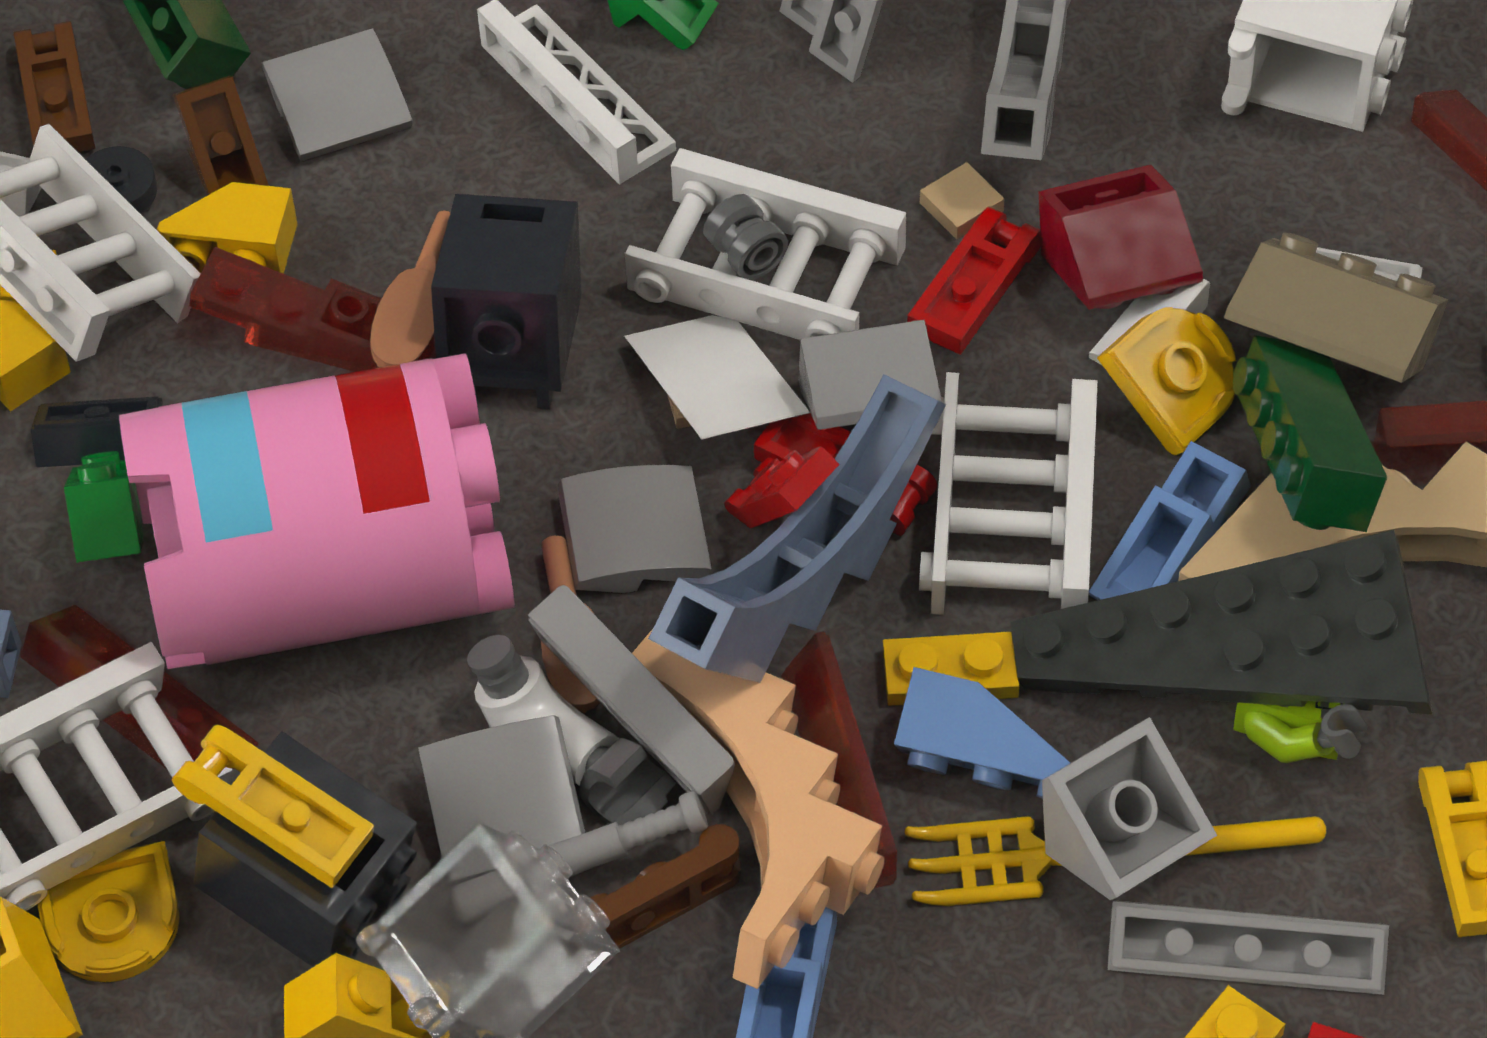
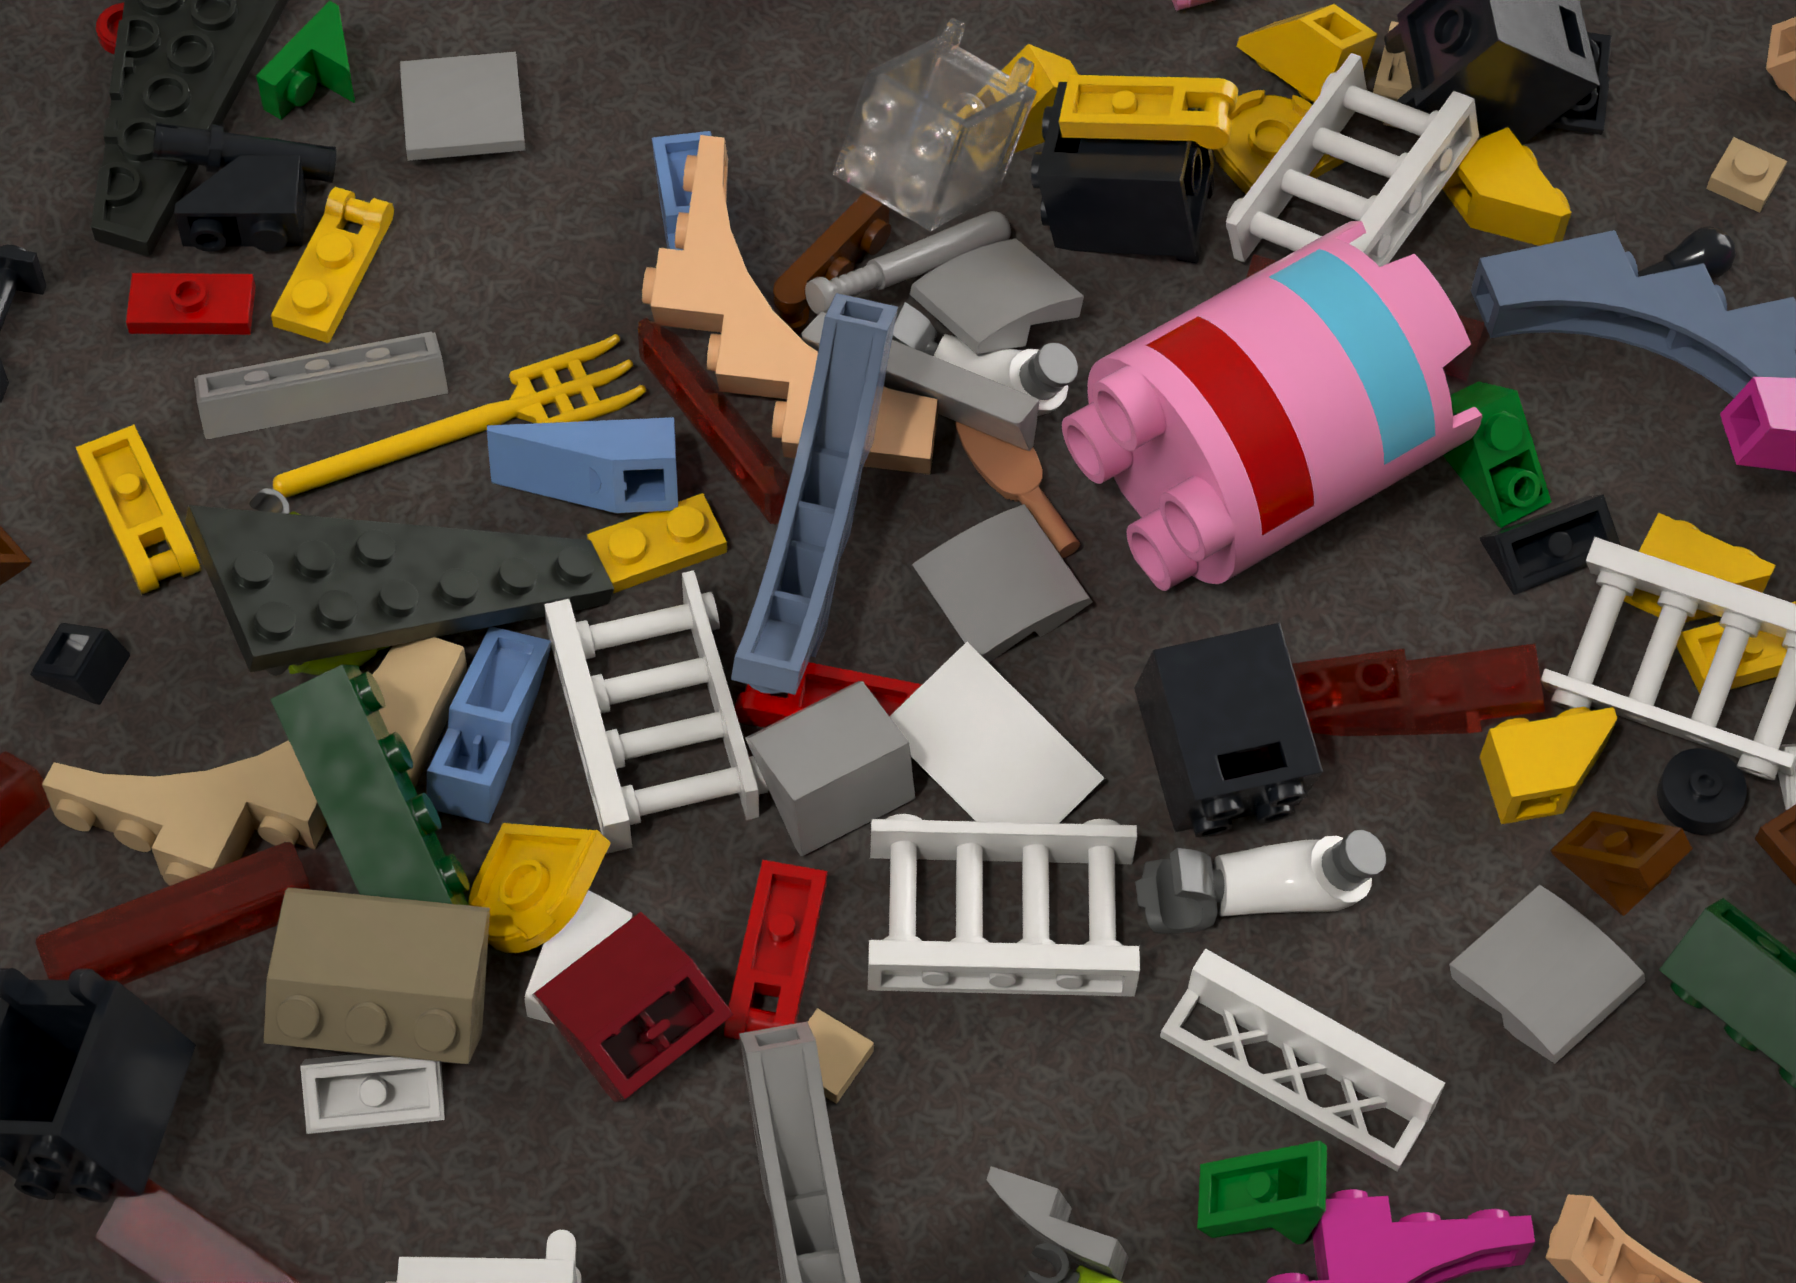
camera: 155 degrees right, 5 degrees up
(405, 312) = (1320, 684): nougat piece -> none
(602, 231) = (1277, 878): none -> piece
(750, 242) = (1019, 867): dark grey wheel -> none
(780, 486) = (865, 601): red plate -> none
(1122, 812) = (445, 407): light grey slope -> none

